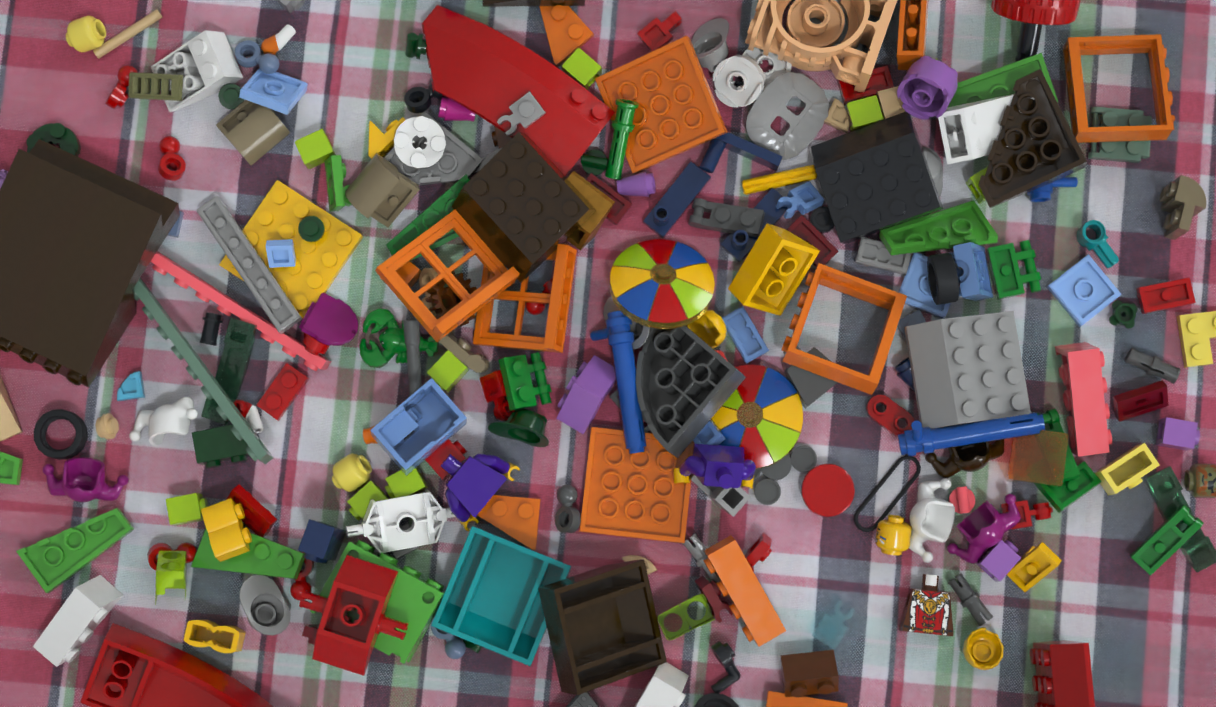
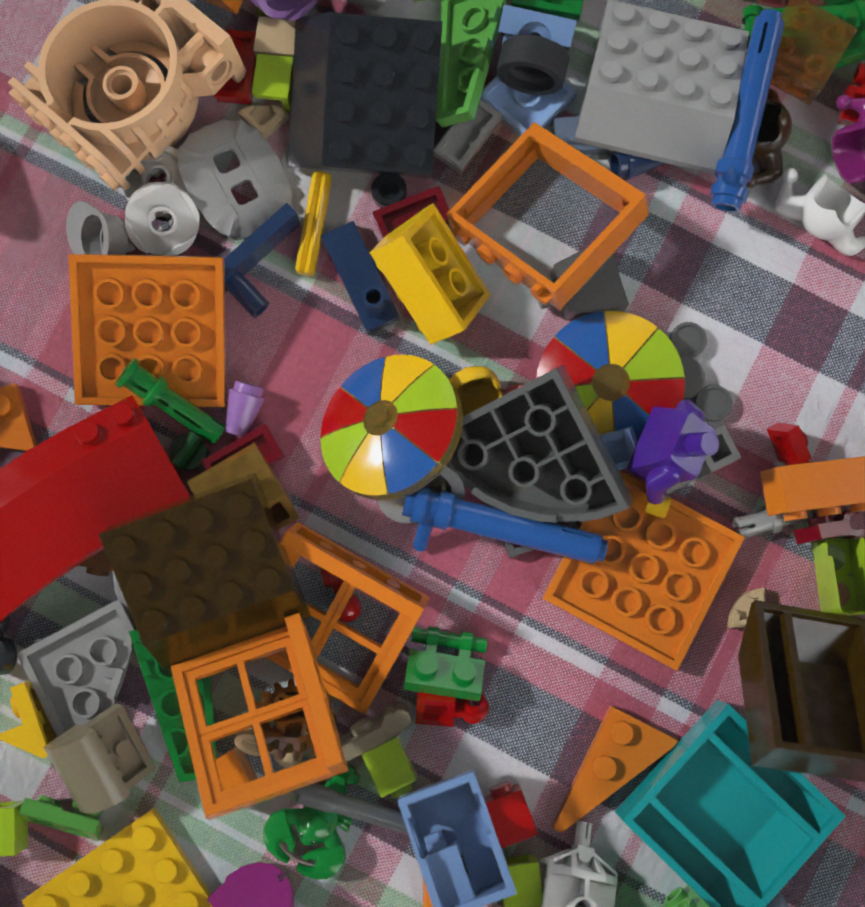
camera: 75 degrees left, 0 degrees up
(311, 229) = (111, 882): dark green plate -> none
(419, 127) = (36, 667): white plate -> none
(454, 111) = (36, 611): dark pink cone -> none
(474, 484) = (562, 792): dark purple torso -> none
(524, 427) = (506, 687): dark green piece -> none
(525, 111) = (75, 514): light grey plate -> none
(567, 517) = (651, 678): dark grey plate -> none
(582, 68) = (52, 414): lime panel -> none
(586, 393) = (497, 586): medium lavender brick -> none
(658, 33) = (51, 298): red plate -> none
(676, 199) = (284, 364): dark blue piece -> none
(726, 217) = (336, 309): dark grey plate -> none
(744, 335) = (500, 348): medium blue plate -> none
(802, 198) = (351, 204): medium blue plate -> none
(827, 490) = (742, 325): red tile -> none
(878, 487) = (785, 250): black piece -> none
(889, 418) = (677, 210): red plate -> none
(893, 535) = (833, 266): yellow head -> none
(962, 499) = (815, 164): coral plate -> none

